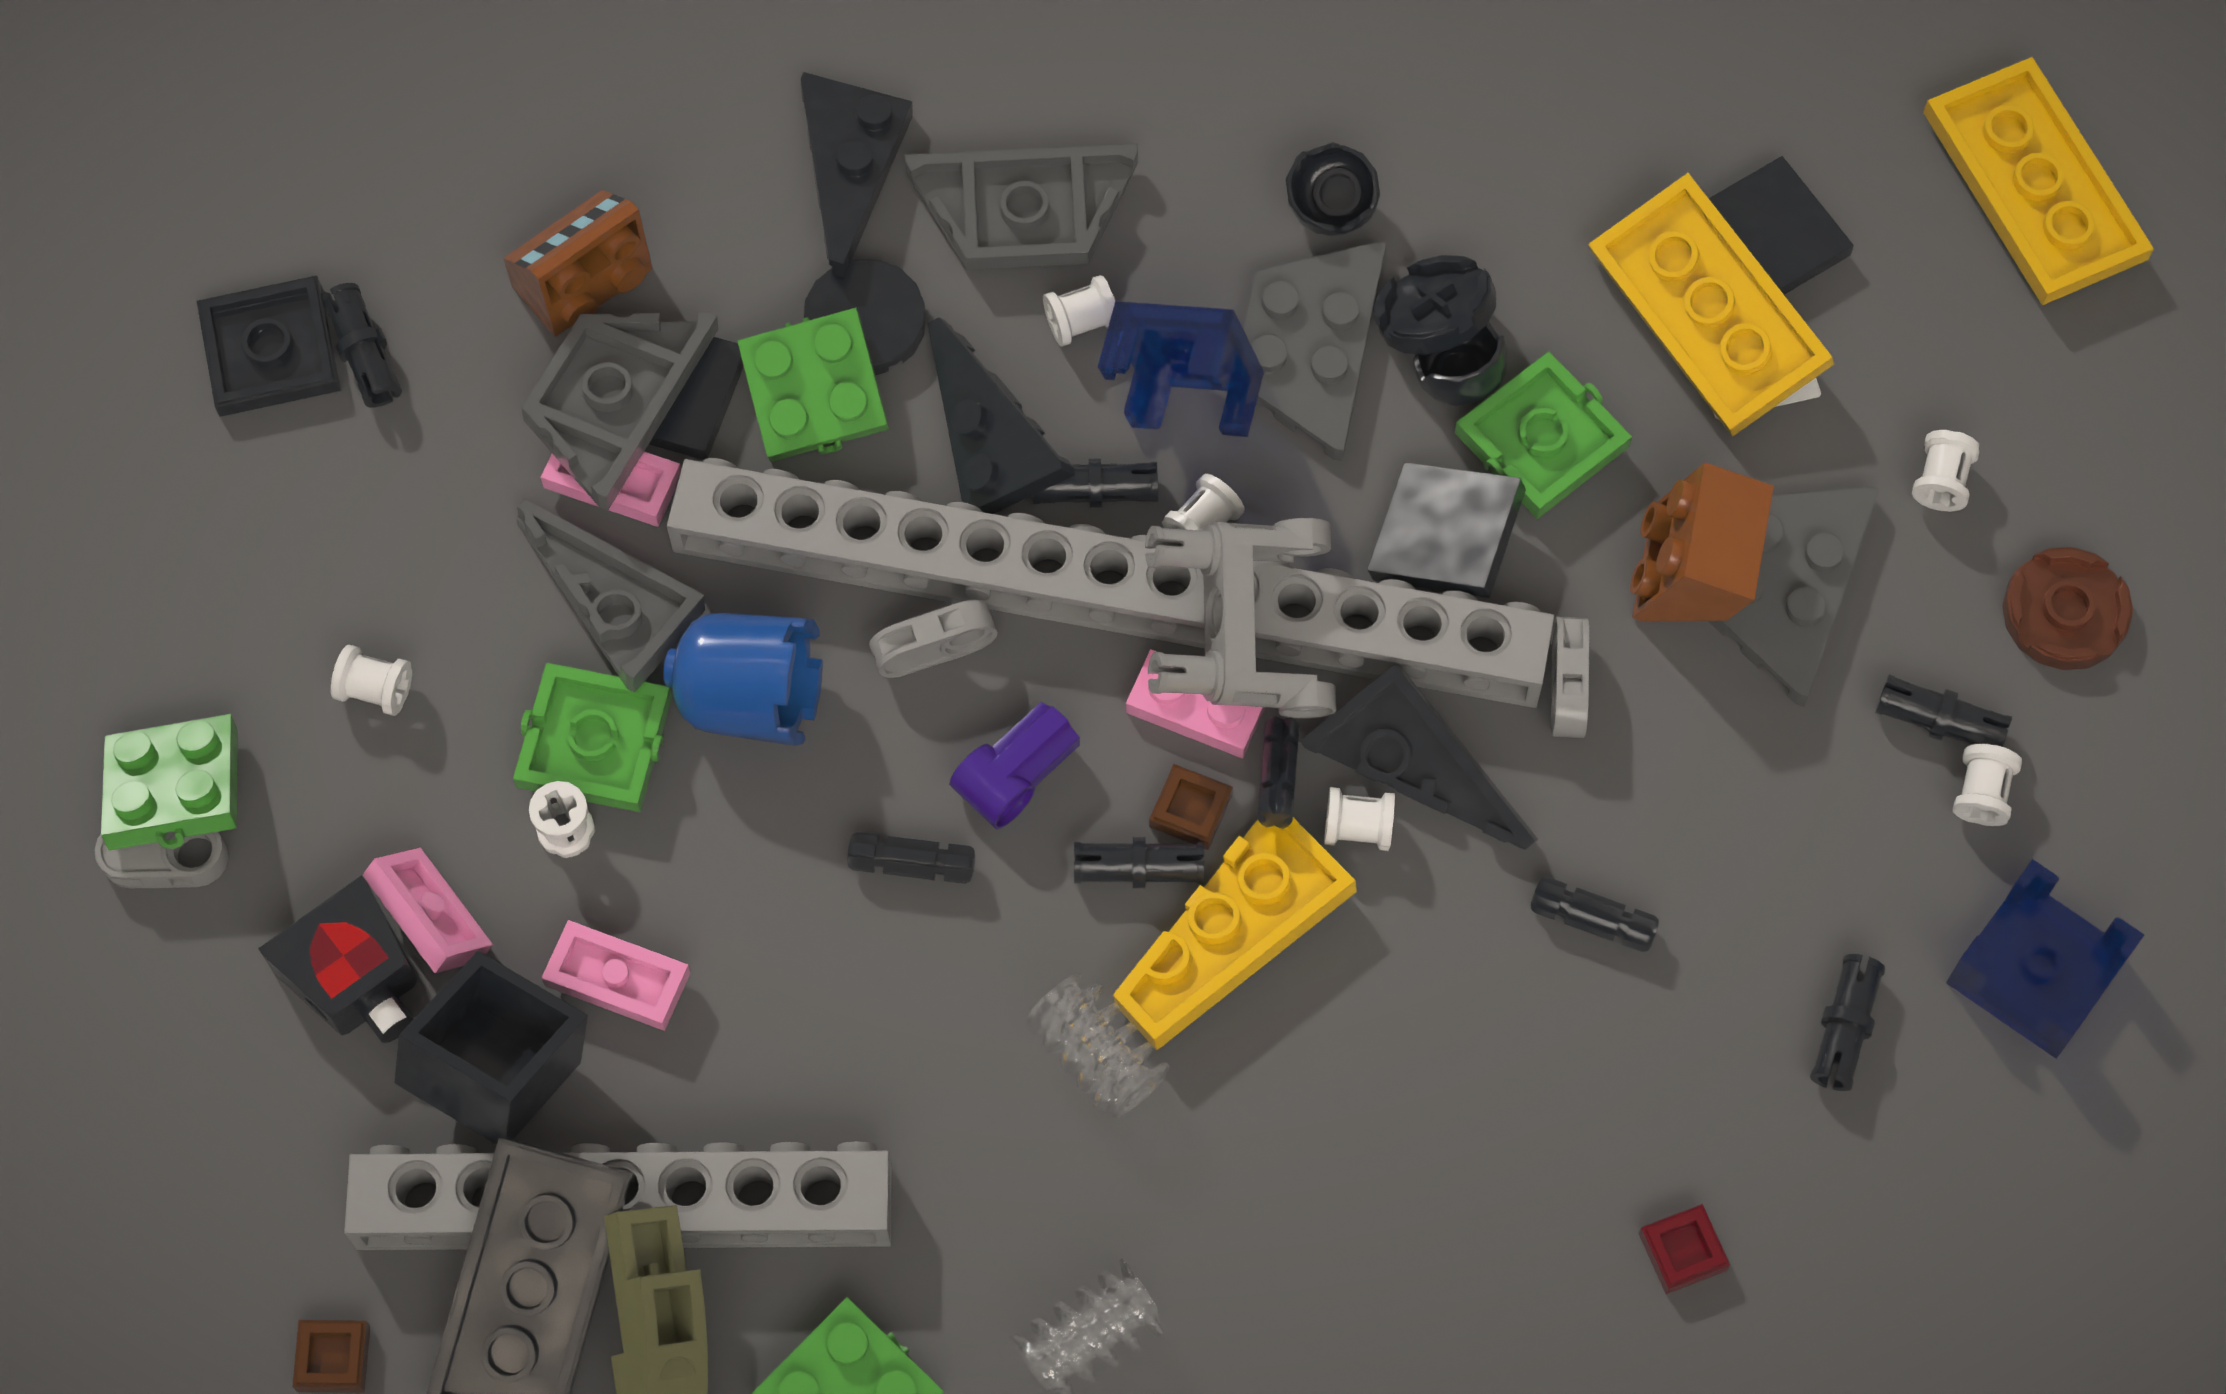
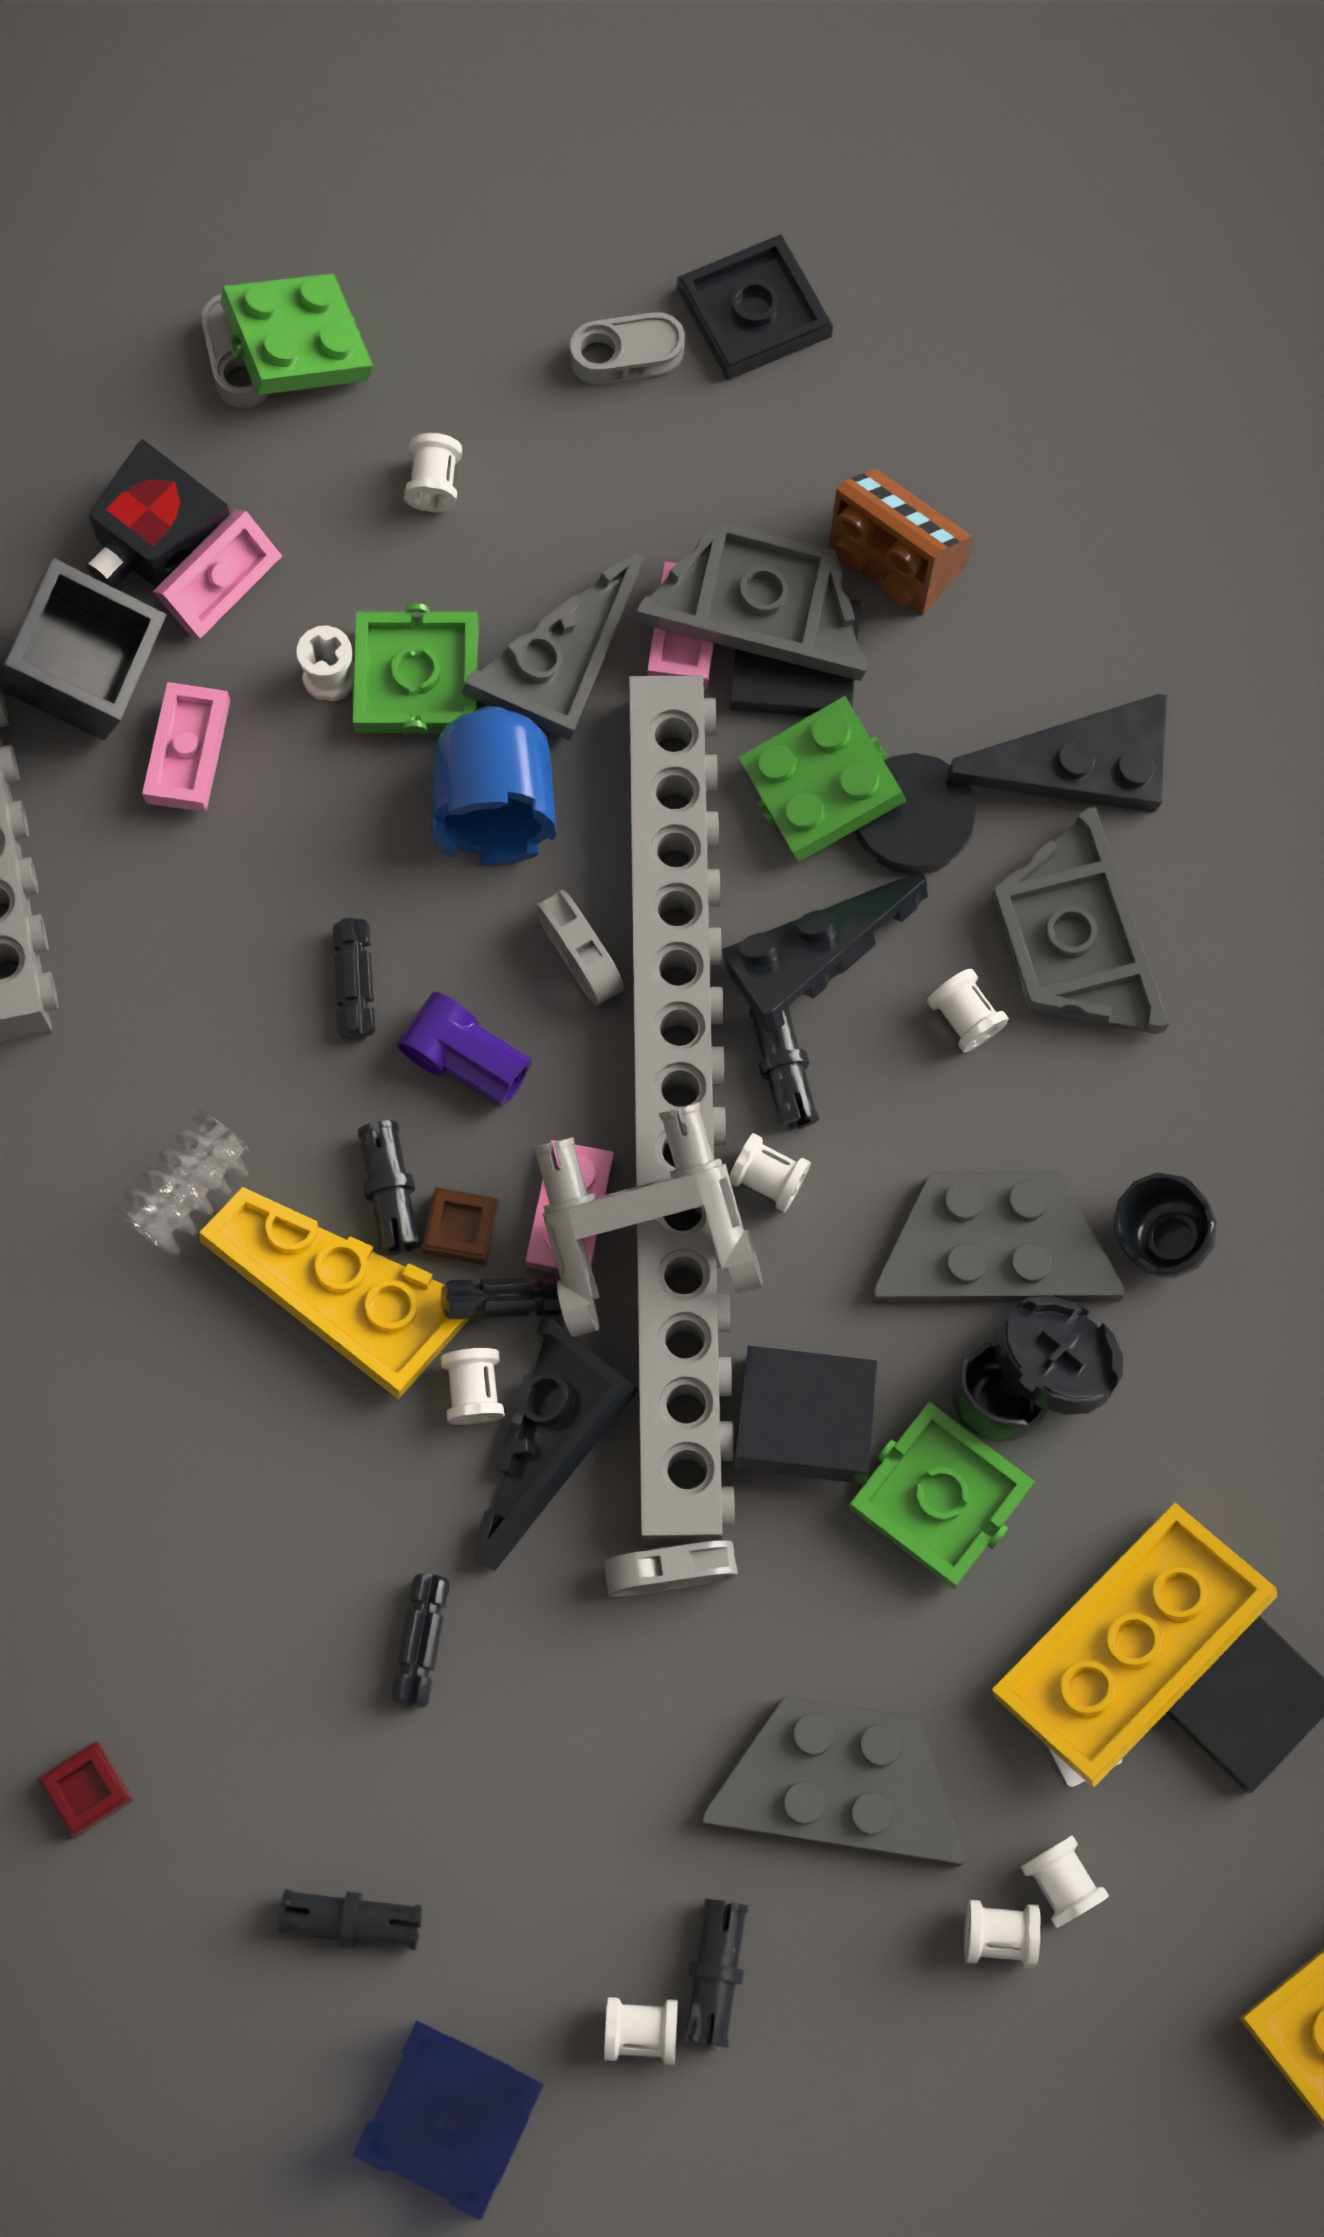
camera: 75 degrees right, 5 degrees up
(284, 458) = (642, 347): none -> light grey piece
(361, 345) = (769, 380): black pin -> none
(1181, 350) = (910, 1109): clear blue panel -> none
(1702, 548) = (834, 1677): dark orange slope -> none
(1908, 410) = (1064, 1881): none -> white bush
(2067, 608) = (875, 2096): copper tile -> none

